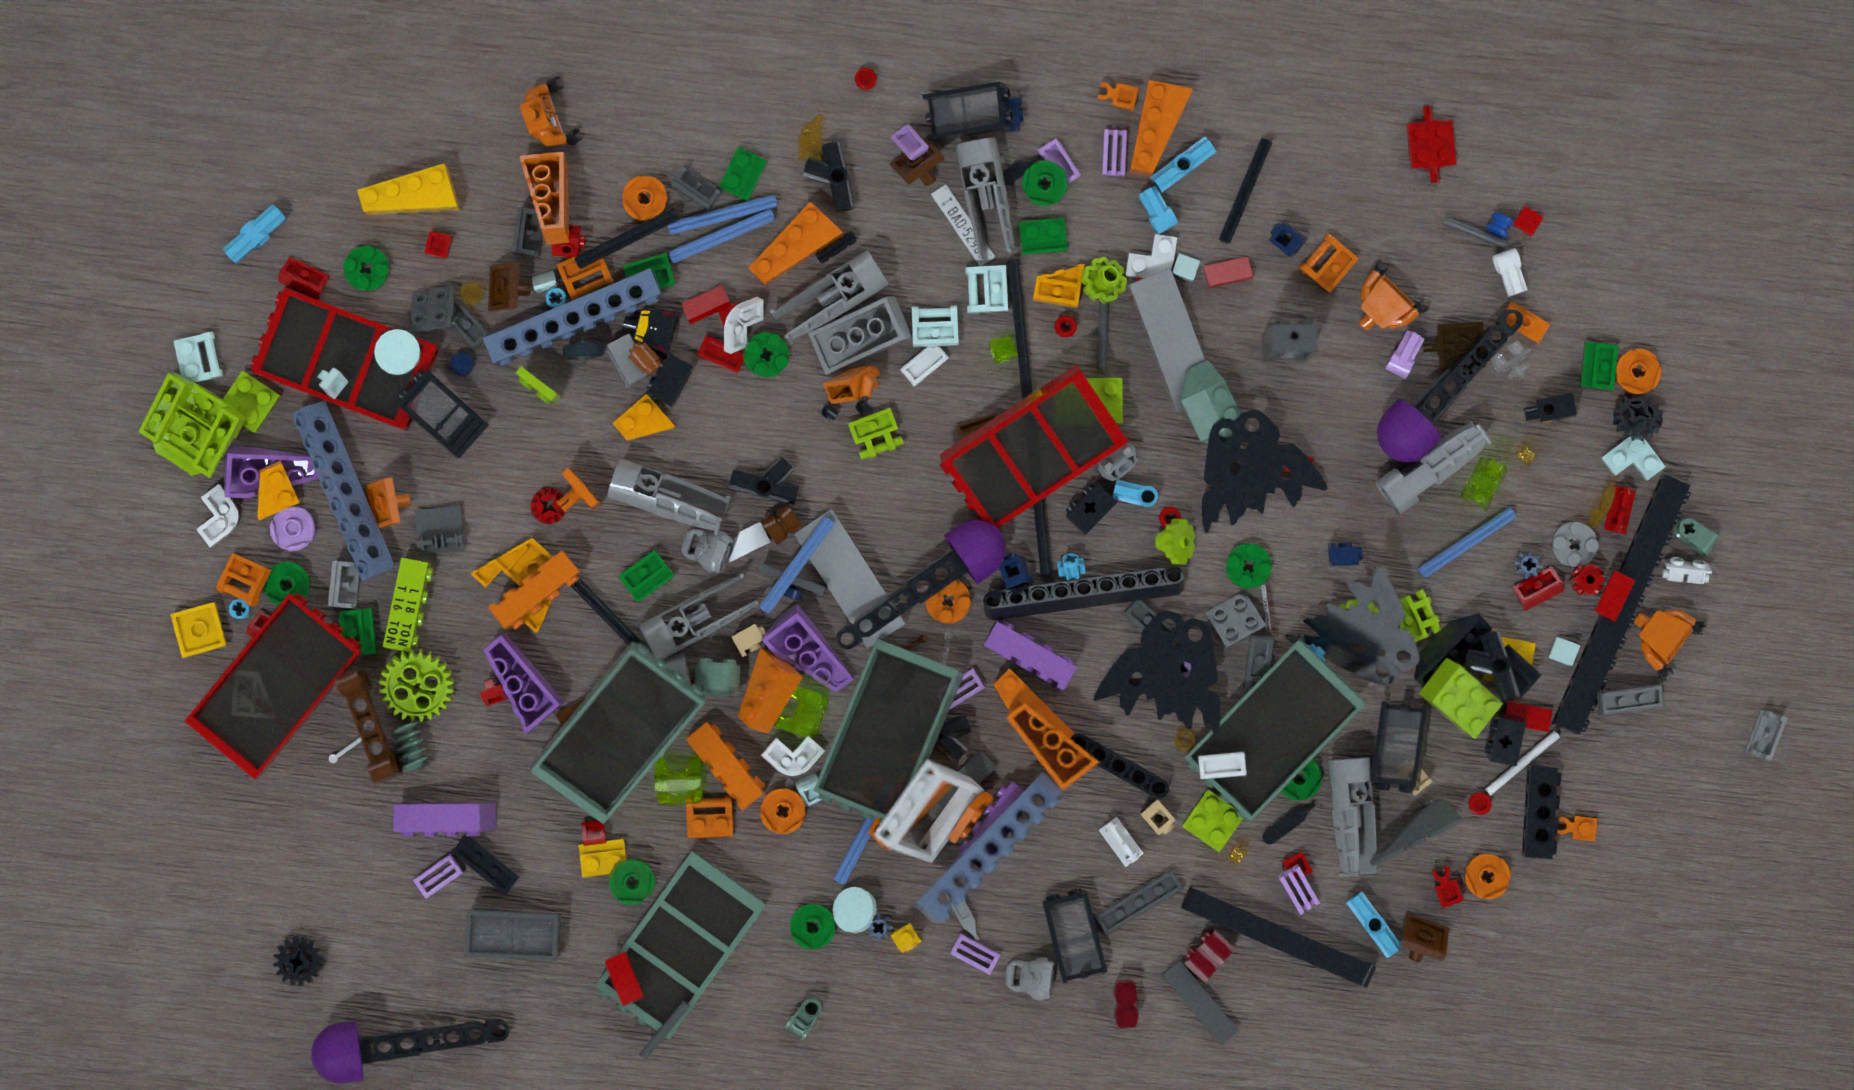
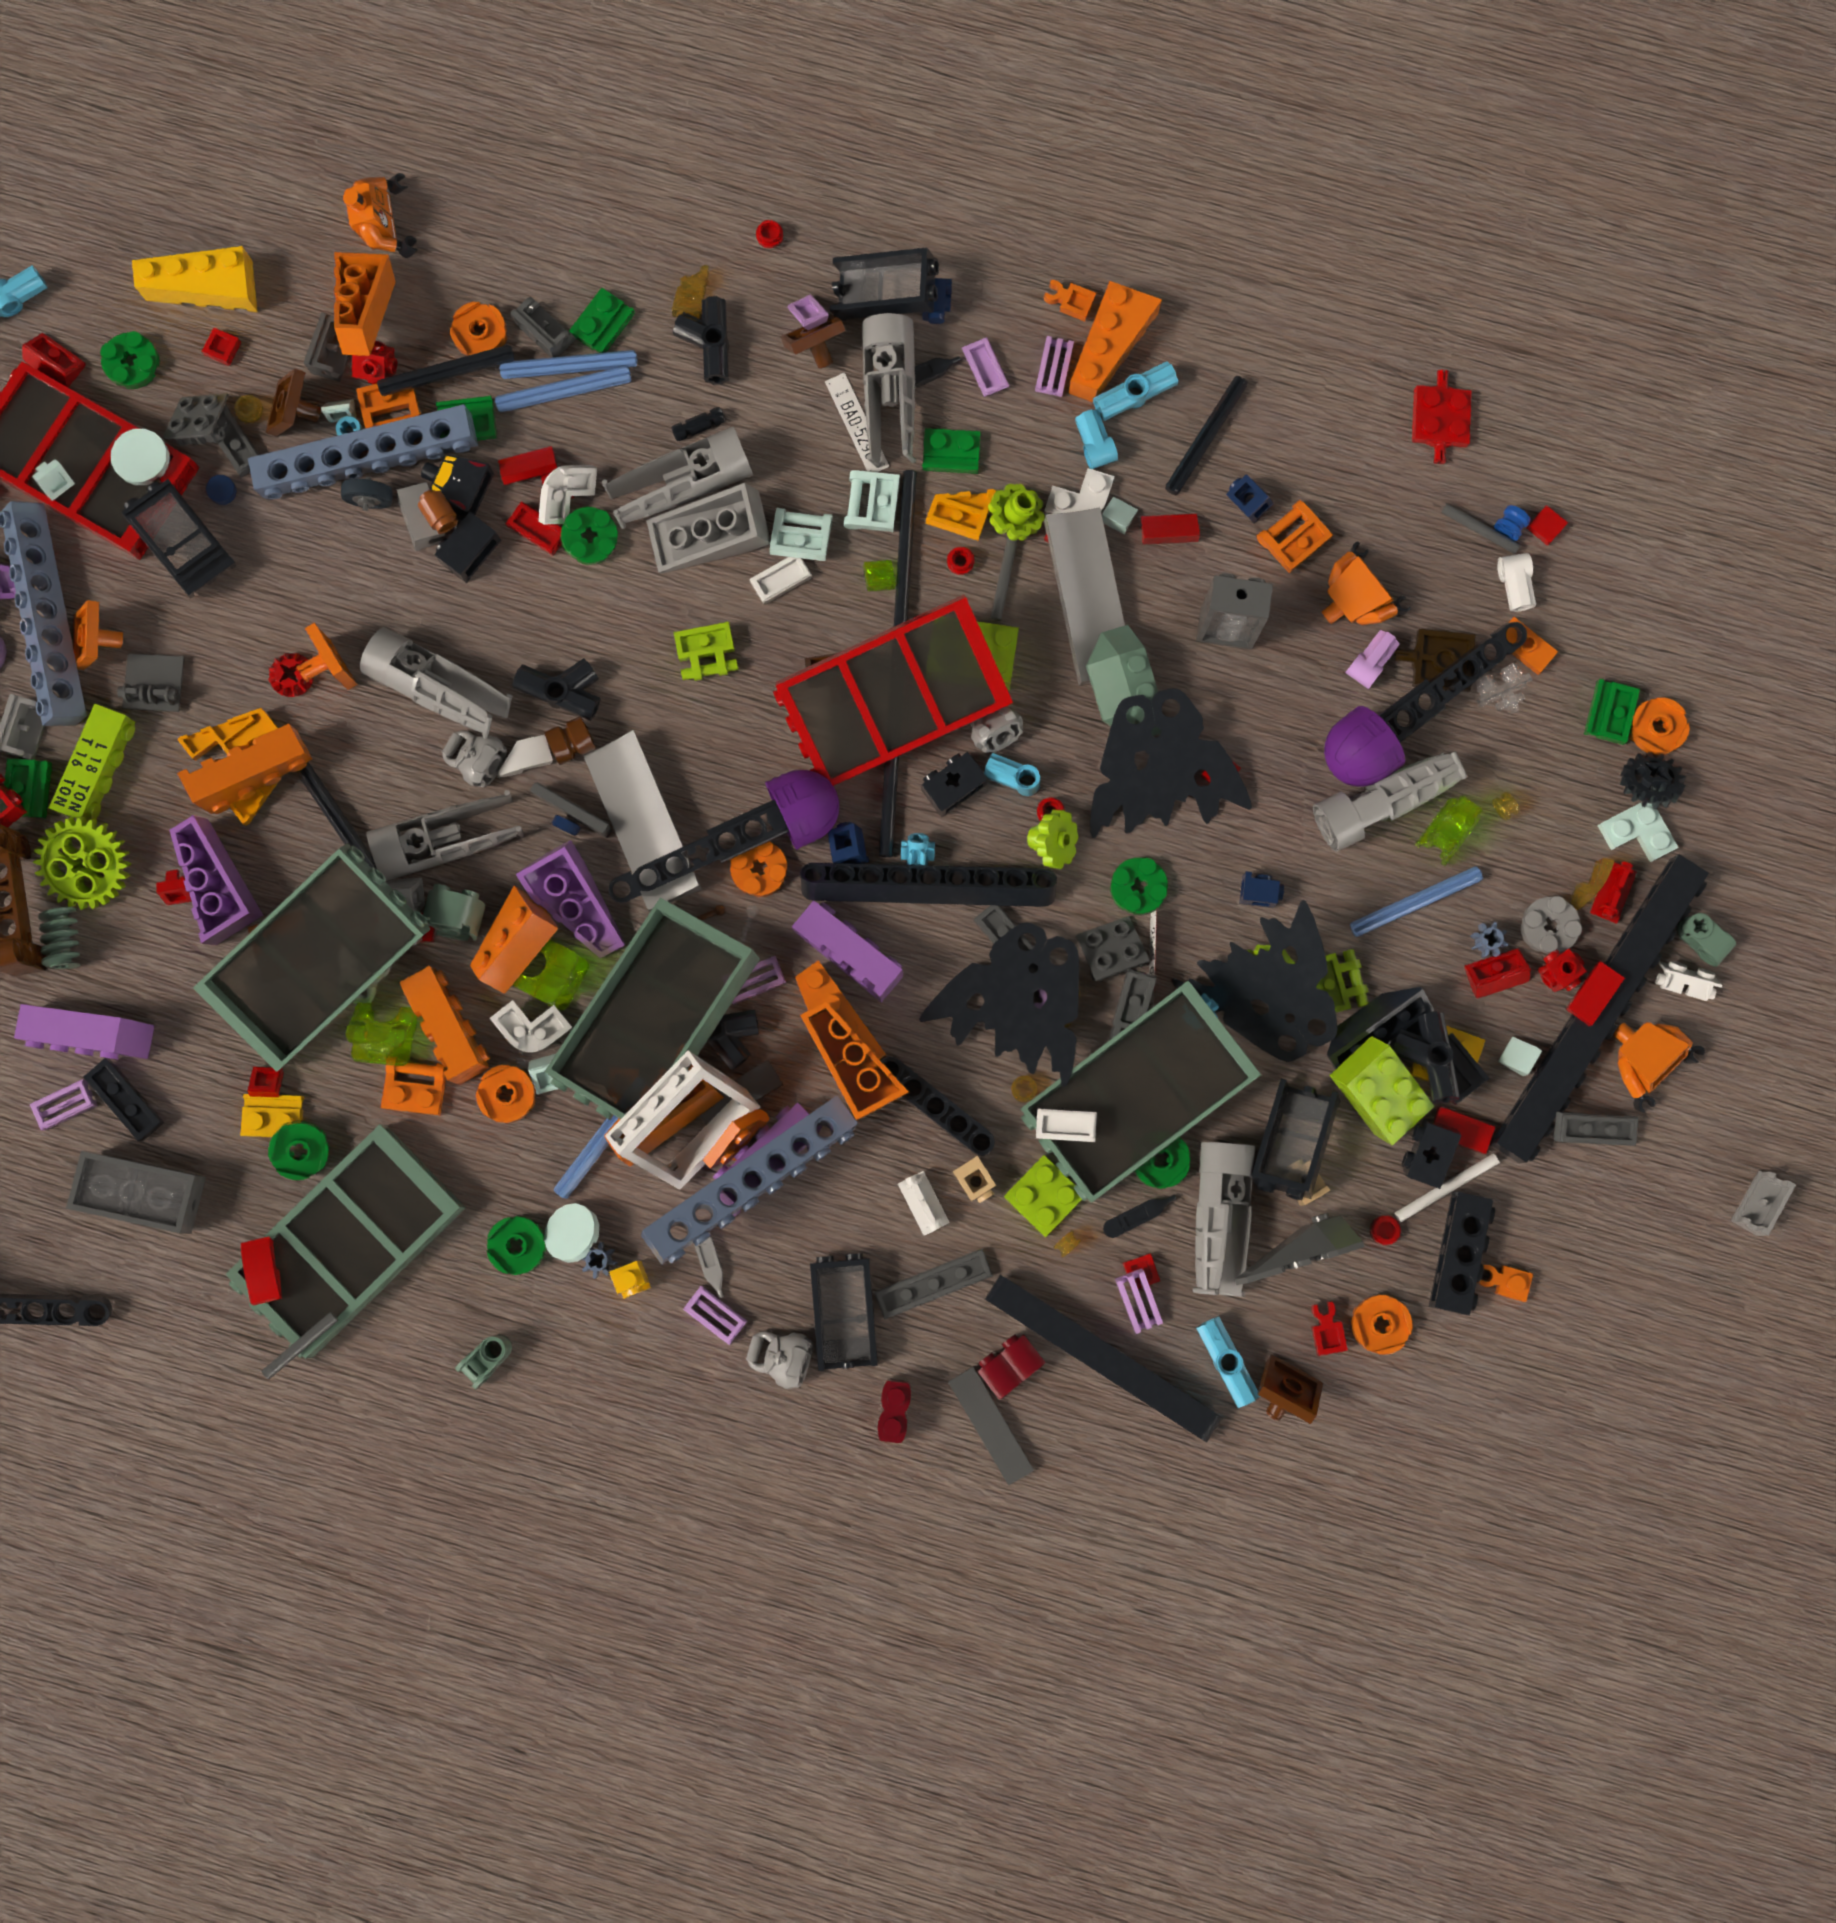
camera: 15 degrees right, 5 degrees down
(531, 381) = (301, 525): lime plate -> none
(642, 420) = (425, 590): light orange wing -> none
(646, 576) = (392, 777): green plate -> none
(749, 639) = (502, 874): tan brick -> none
(795, 244) = (647, 410): orange wedge -> none
(796, 565) = (576, 790): medium blue axle -> none
(851, 386) = (683, 584): orange torso -> none
(1035, 191) = (956, 372): green plate -> none
(1563, 407) = (1561, 752): black torso -> none

